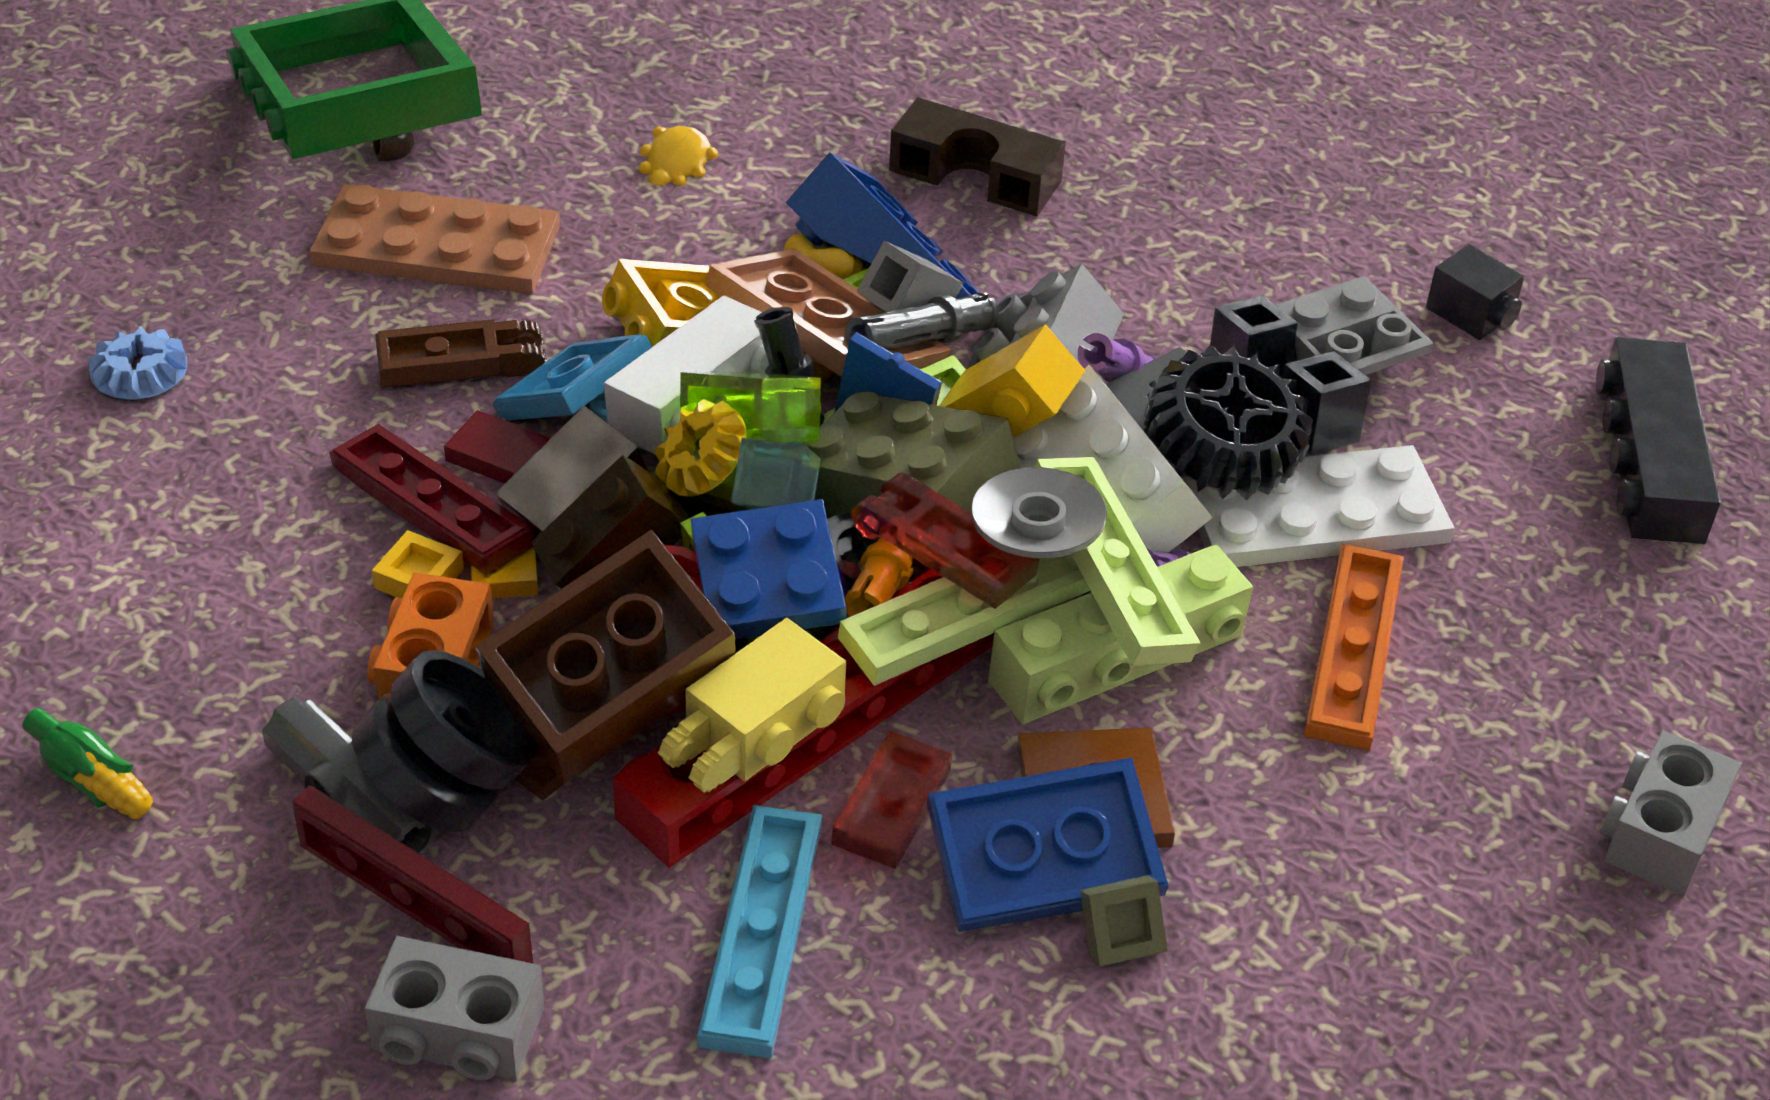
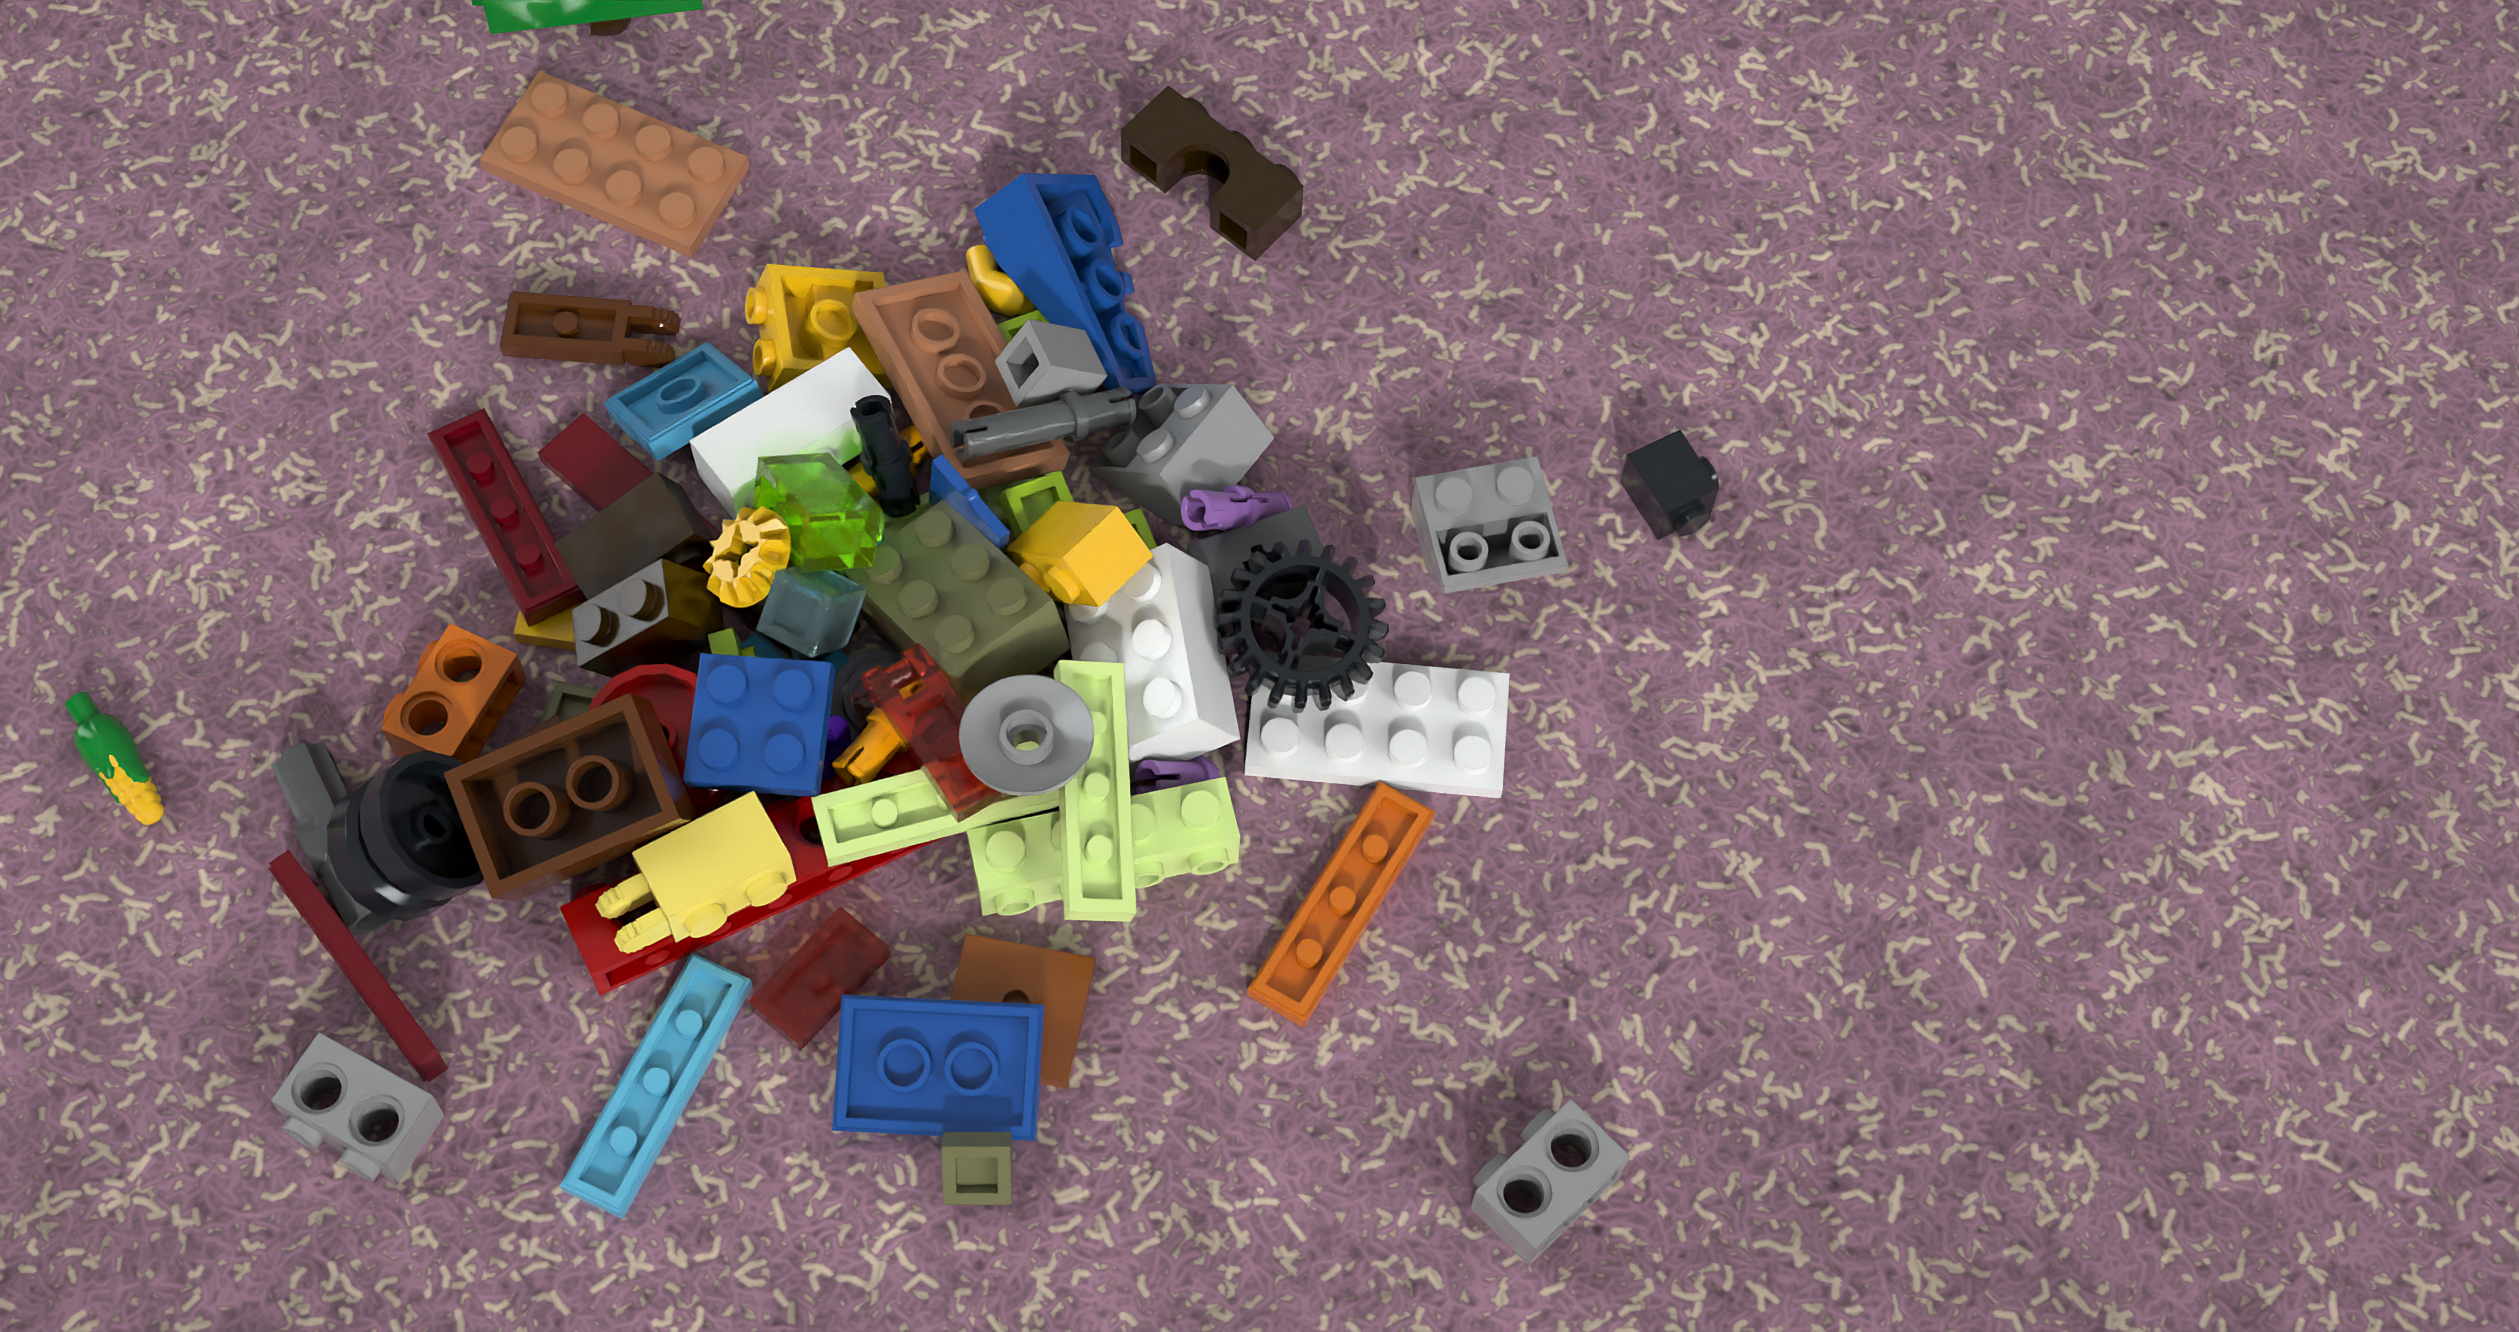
camera: 15 degrees right, 20 degrees up
(158, 371) = (290, 290): light blue gear -> none
(415, 555) = (469, 600): yellow plate -> none
(676, 155) = (899, 95): yellow piece -> none
(1331, 384) = (1389, 539): black arch -> none
(1658, 441) = (1769, 727): black brick -> none

